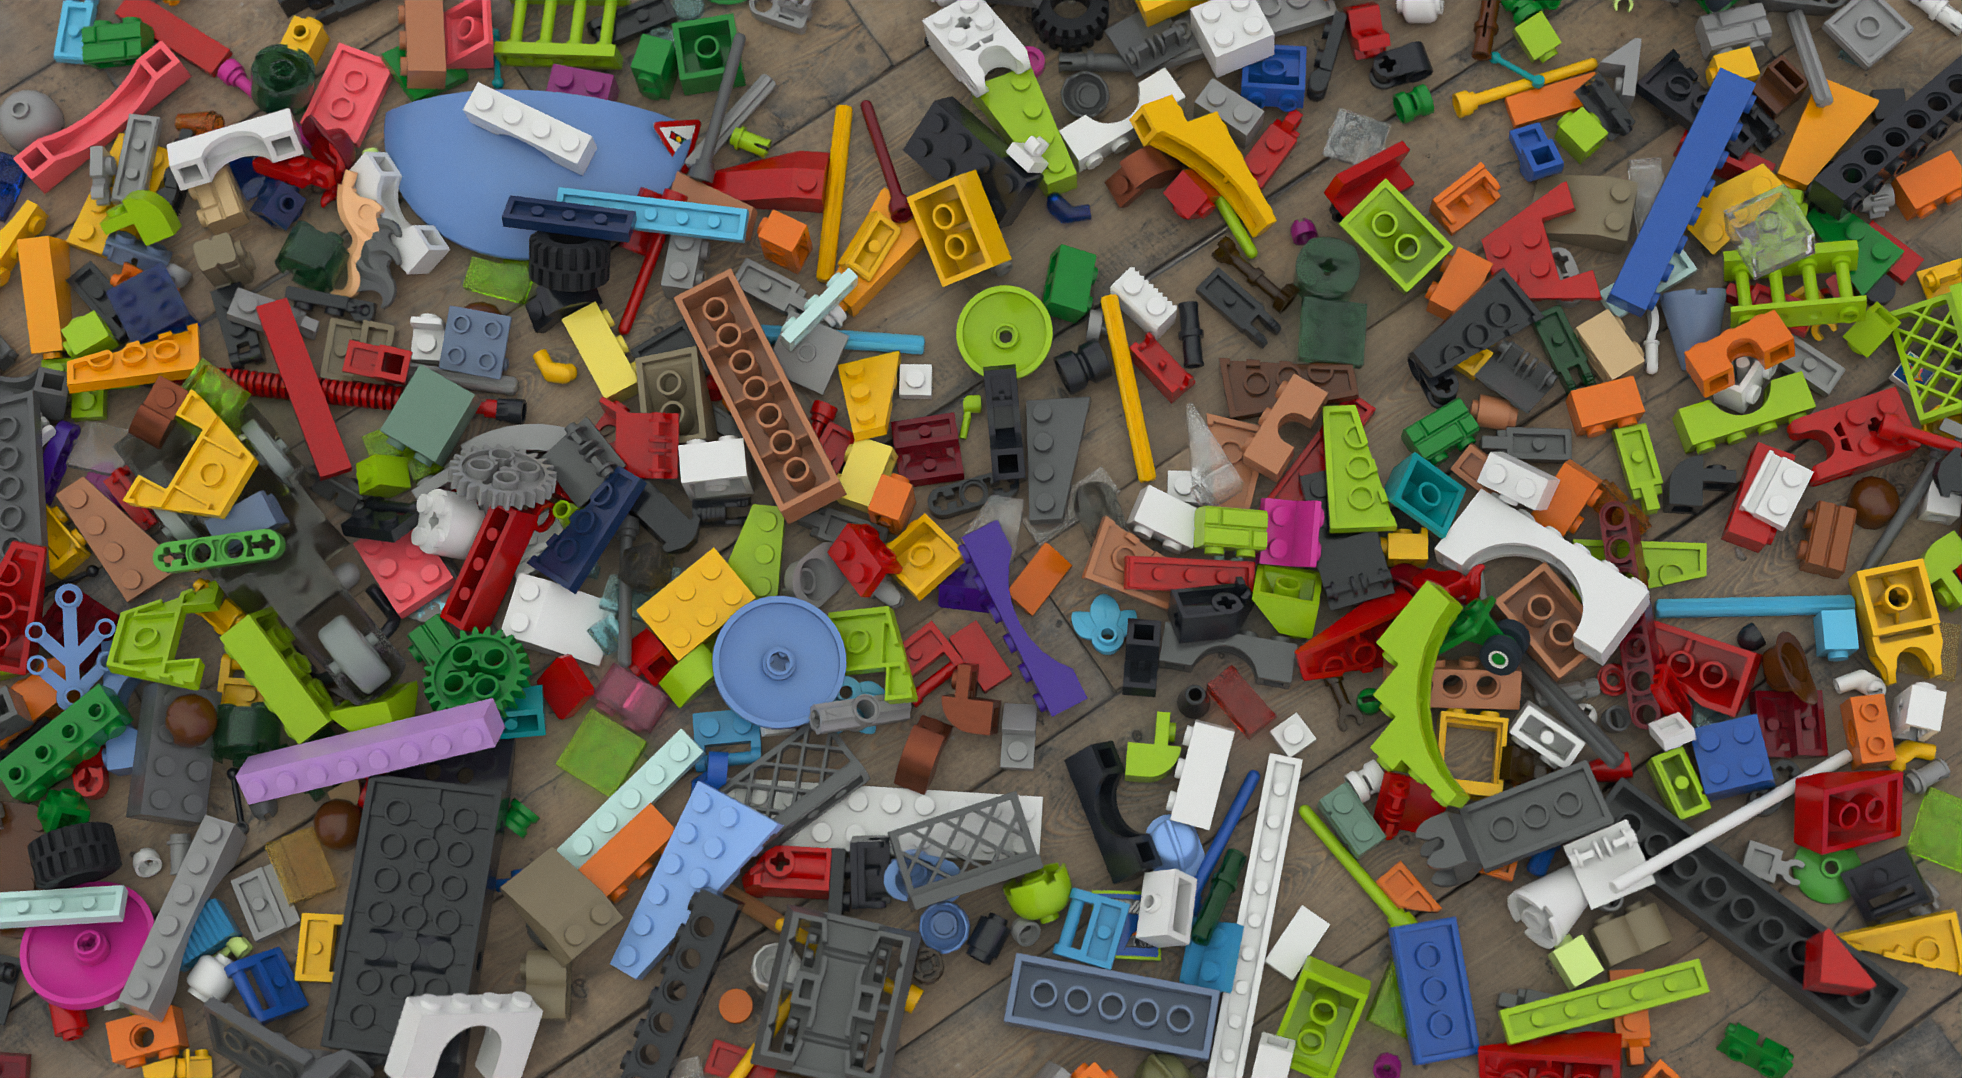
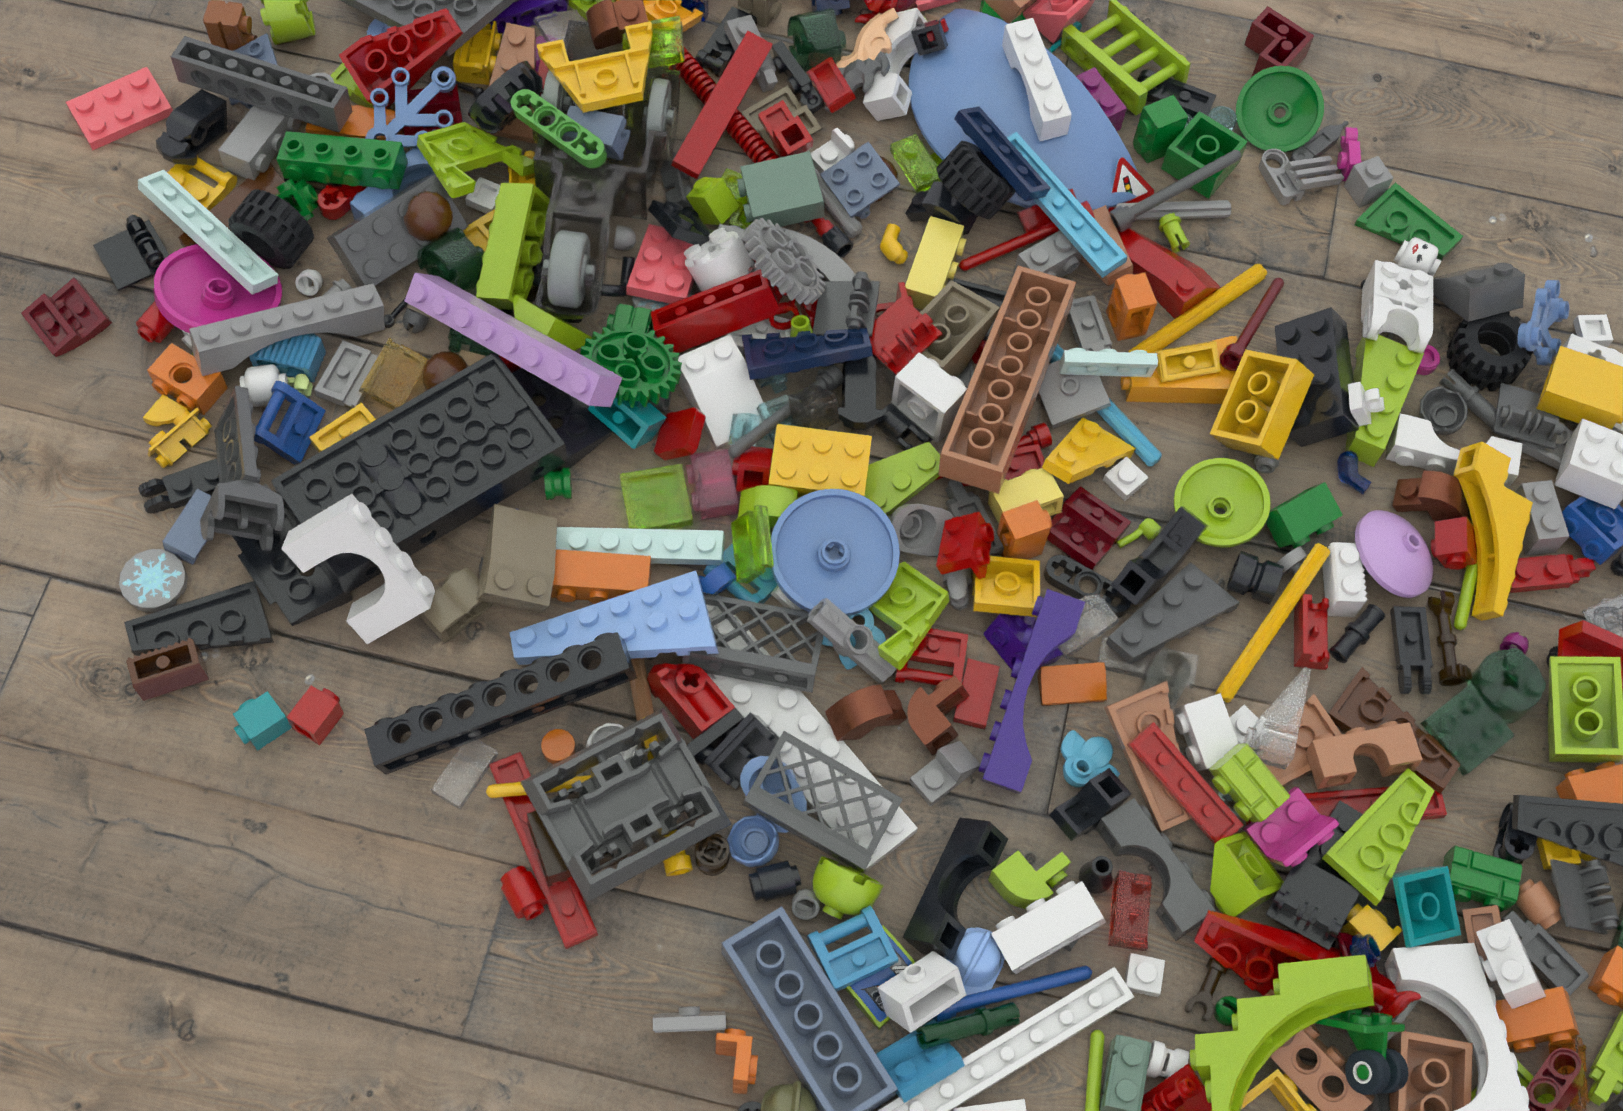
camera: 35 degrees right, 10 degrees down
(136, 566) = (493, 107): none -> black gear
(204, 647) = (483, 196): none -> white plate
(367, 284) = (831, 85): none -> red tile
(401, 166) = (930, 36): none -> black piece
(714, 717) = (752, 544): none -> clear neon green plate
(835, 318) = (1113, 385): white plate -> none
(1158, 247) = (1394, 553): none -> lavender dish
(1209, 611) = (1175, 822): black piece -> none
(1418, 569) = (1366, 946): none -> clear blue plate

